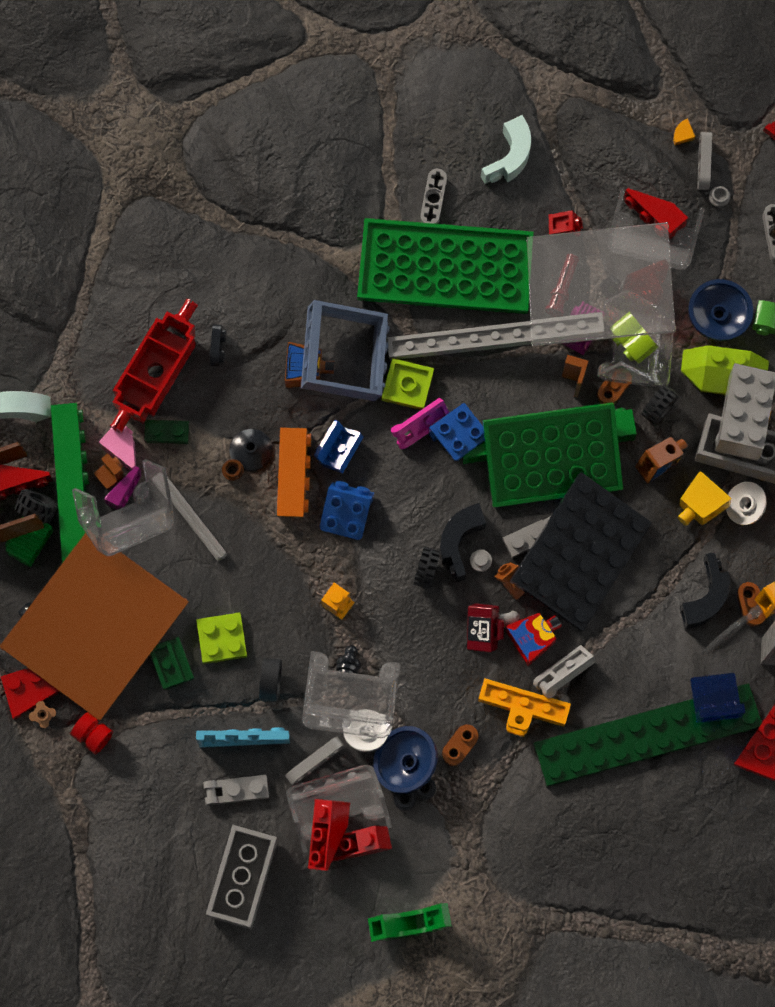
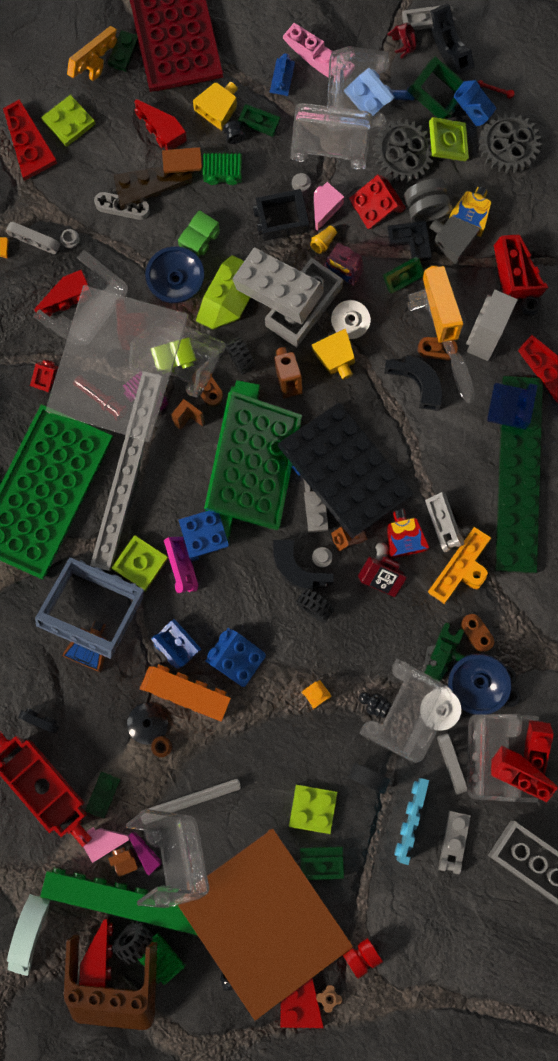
camera: 70 degrees left, 5 degrees up
(423, 713) = (442, 653): none -> dark green piece

